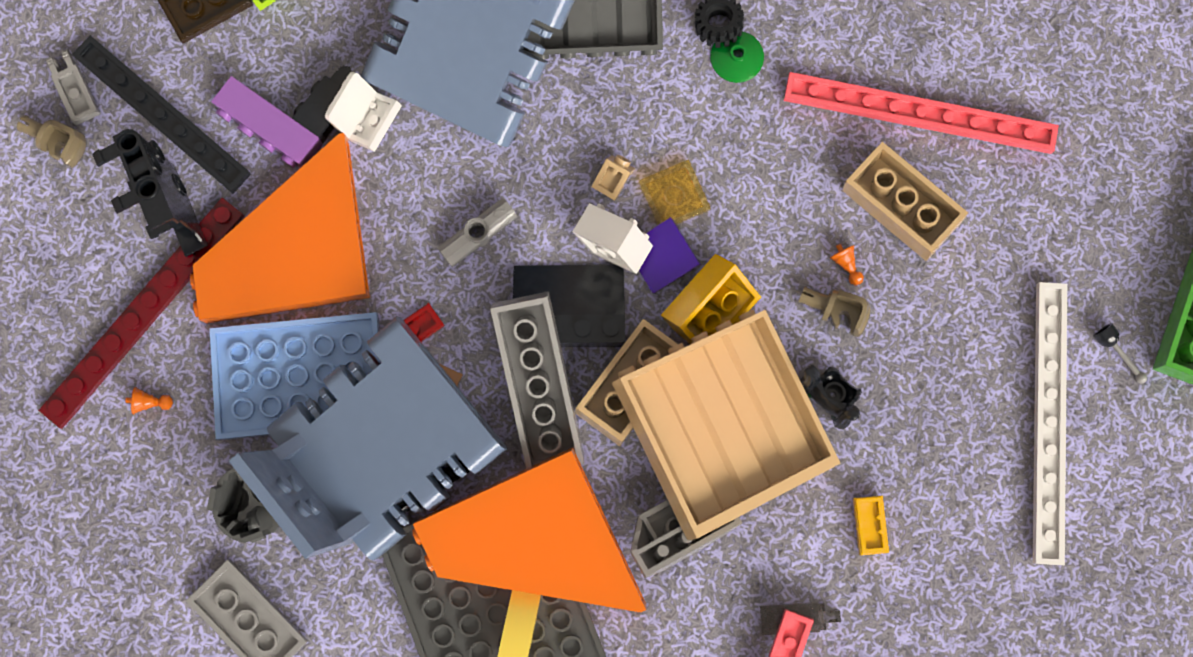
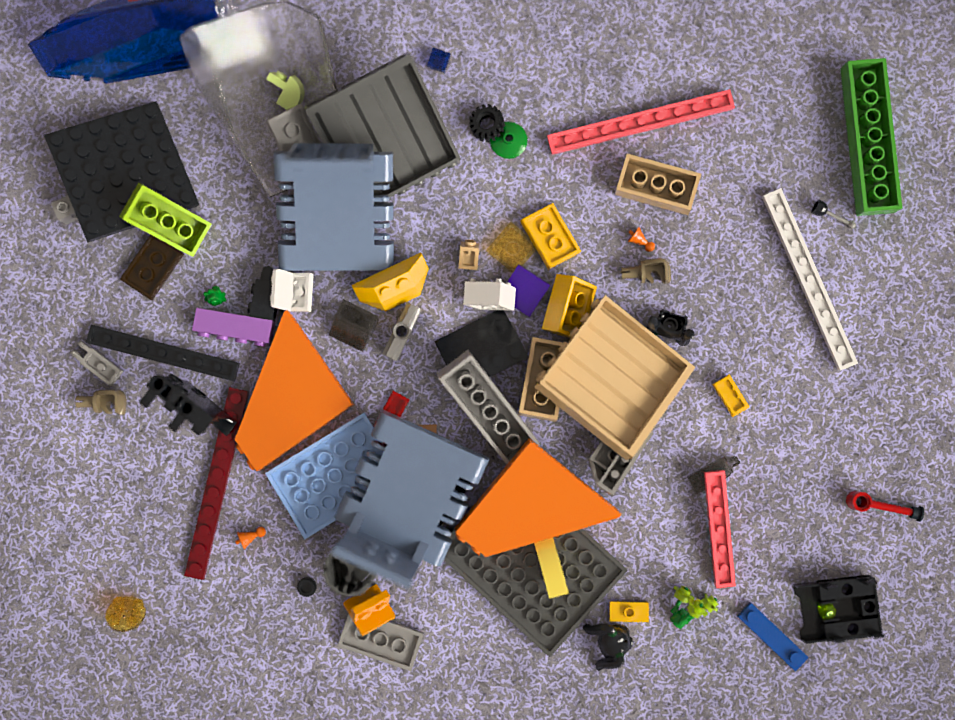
camera: 25 degrees left, 5 degrees up
(187, 503) = (306, 586): none -> black plate
(252, 573) = (369, 609): none -> light orange bracket
(262, 74) = (214, 296): none -> green plant
(419, 194) = (353, 325): none -> clear smoke slope
(497, 167) = (393, 285): none -> yellow wedge
(731, 202) = (550, 236): none -> yellow tile

